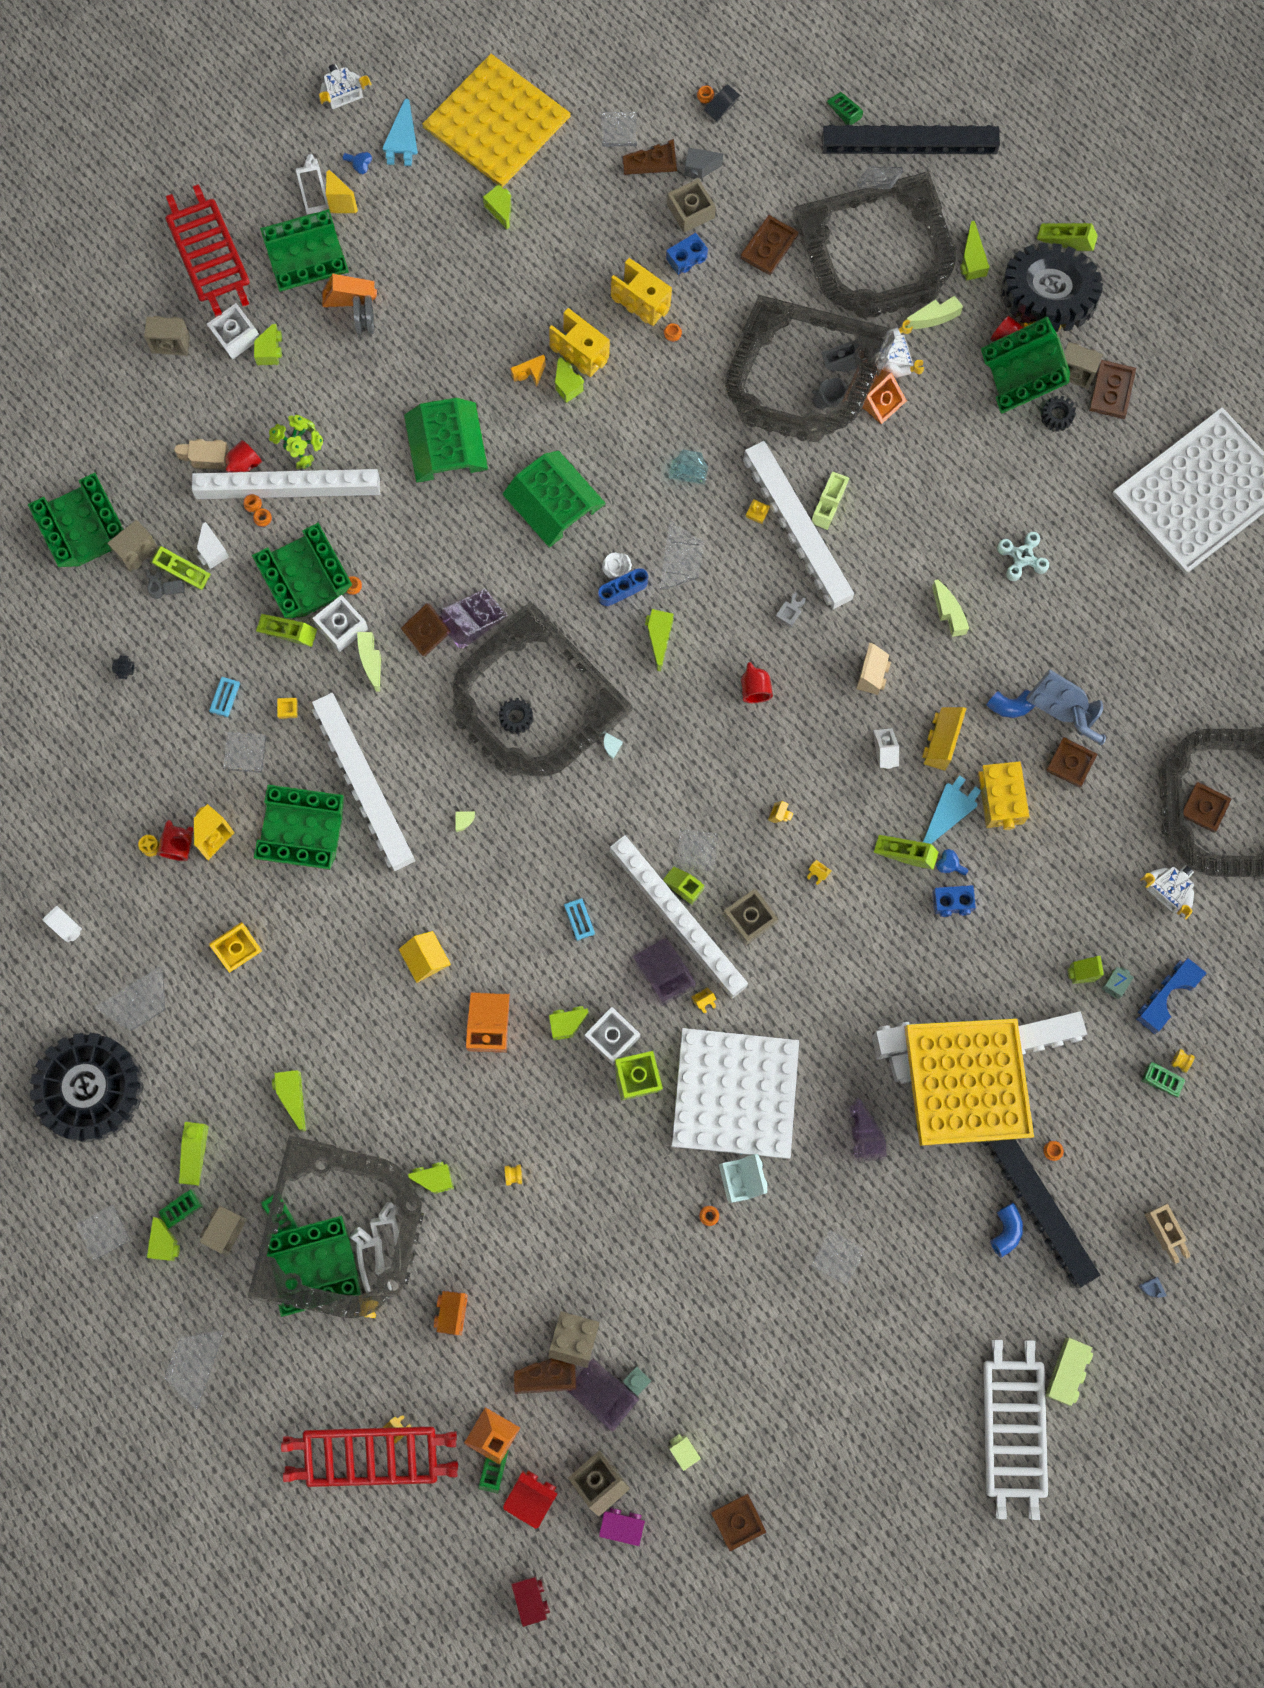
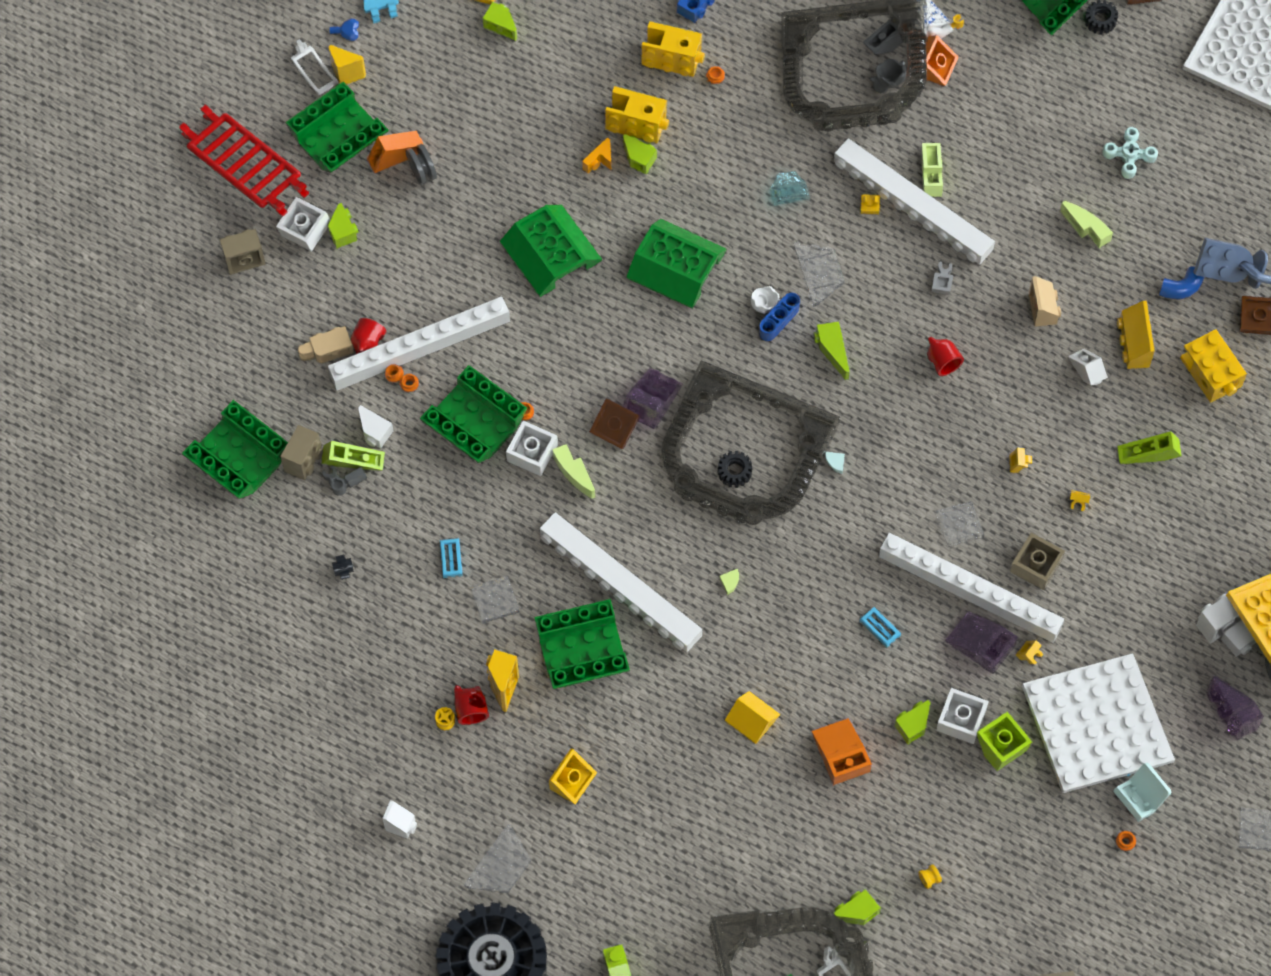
camera: 20 degrees left, 10 degrees down
(287, 629) = (482, 473): lime slope -> none
(287, 708) = (518, 543): yellow tile -> none
(289, 1090) = (687, 888): lime slope -> none
(294, 443) = (414, 303): lime plant -> none
(684, 884) = (964, 556): lime slope -> none
(950, 863) = (1193, 445): blue rock -> none
(951, 809) = (1171, 397): medium azure flag -> none
(953, 894) = (1210, 472): blue brick -> none

